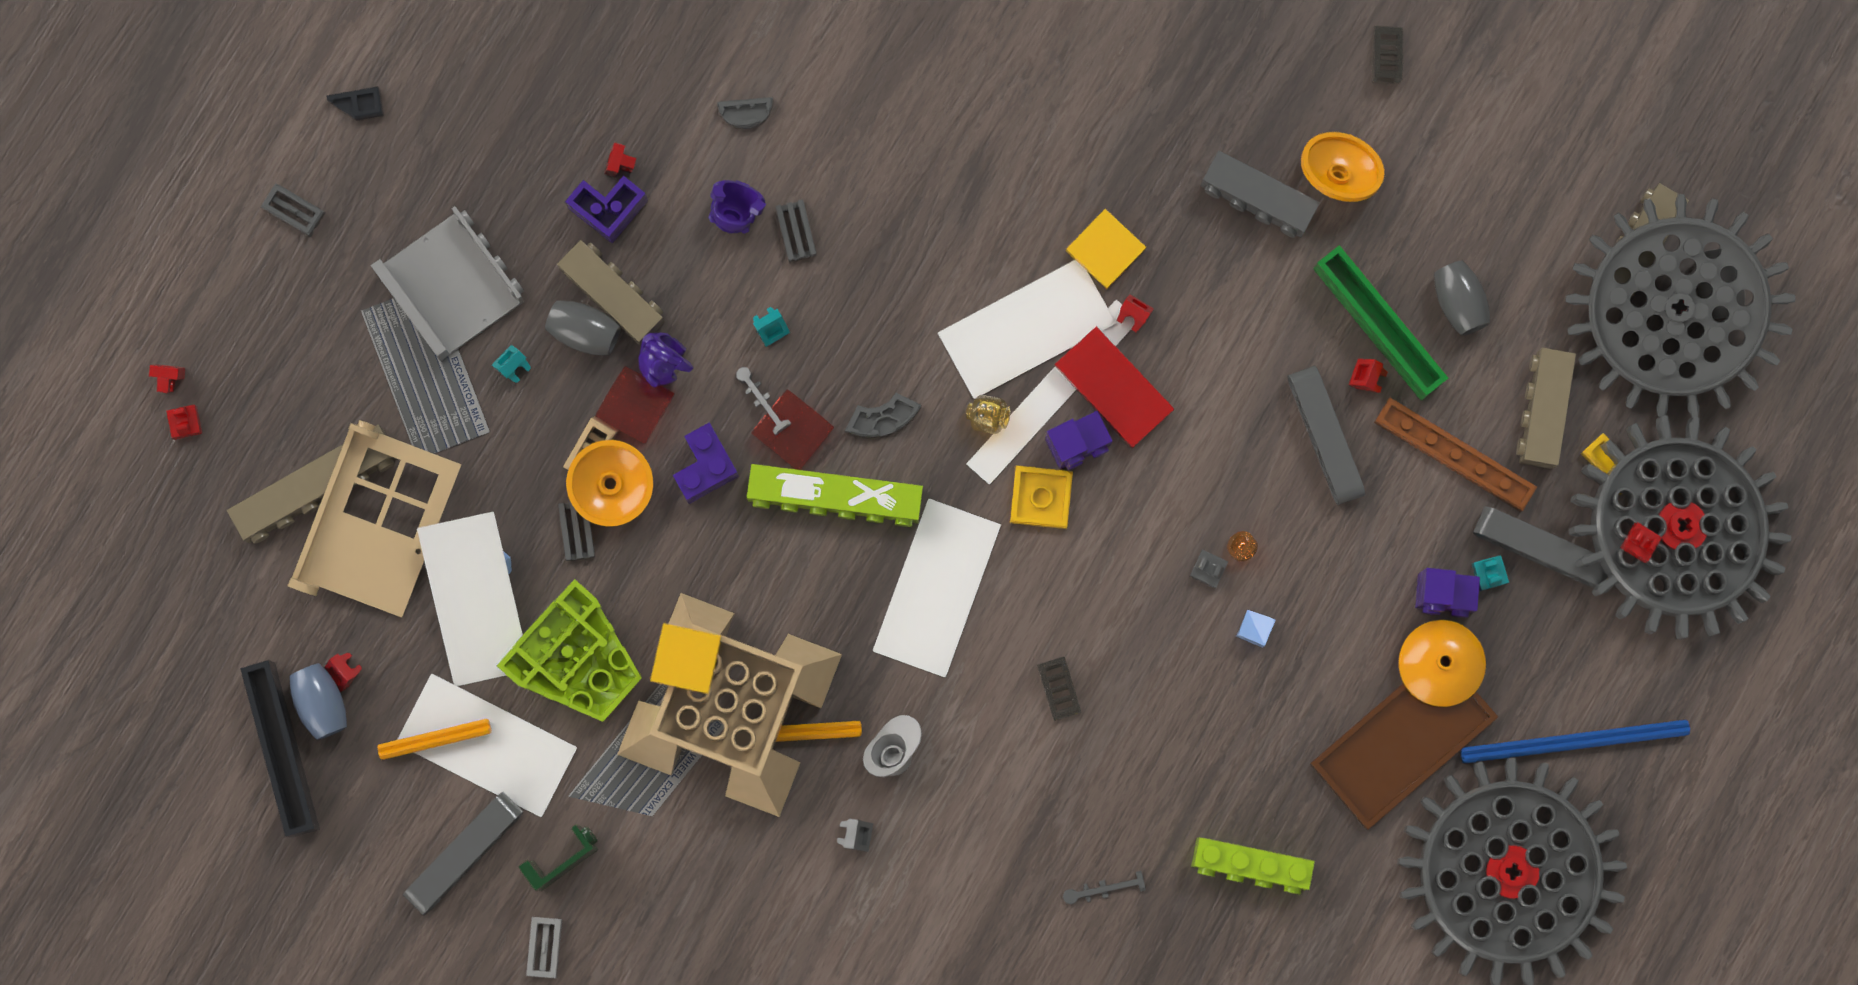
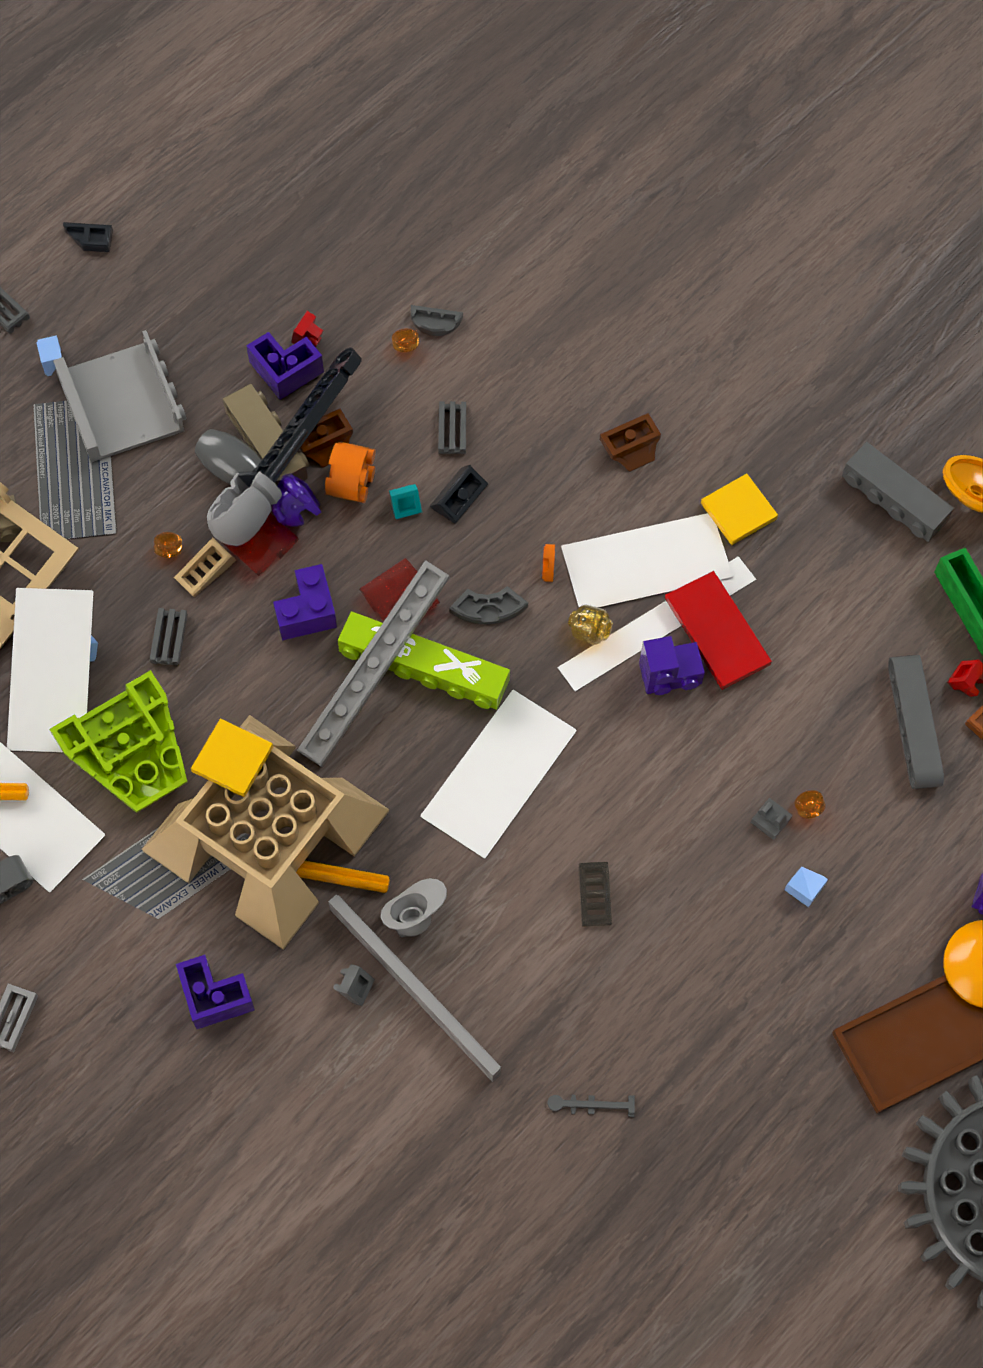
camera: 15 degrees right, 15 degrees down
(362, 254) = (49, 350): none -> light blue slope
(509, 361) = (152, 475): teal tile -> none
(540, 881) = (55, 938): dark green panel -> none
(546, 434) = (167, 544): none -> clear orange tile
(587, 483) = (209, 580): light orange dish -> none
(616, 379) = (247, 503): none -> piece
(671, 277) = (328, 431): none -> reddish brown slope
(709, 313) = (350, 472): none -> orange brick
(722, 144) = (405, 340): none -> clear orange tile
(724, 886) = (210, 1000): none -> dark purple brick
(735, 206) = (401, 390): dark purple helmet -> none
(744, 375) = (368, 539): piece -> none
(789, 513) = (373, 663): none -> light grey tile
(821, 302) = (459, 494): none -> black slope
(912, 823) = (415, 988): none -> light grey tile
(931, 358) = (548, 562): none -> orange tile
(982, 203) = (632, 442): none -> reddish brown slope
(1041, 497) = (622, 713): yellow tile -> none
(1137, 309) = (751, 563): red tile -> none
(1252, 863) = (752, 1115): lime brick -> none

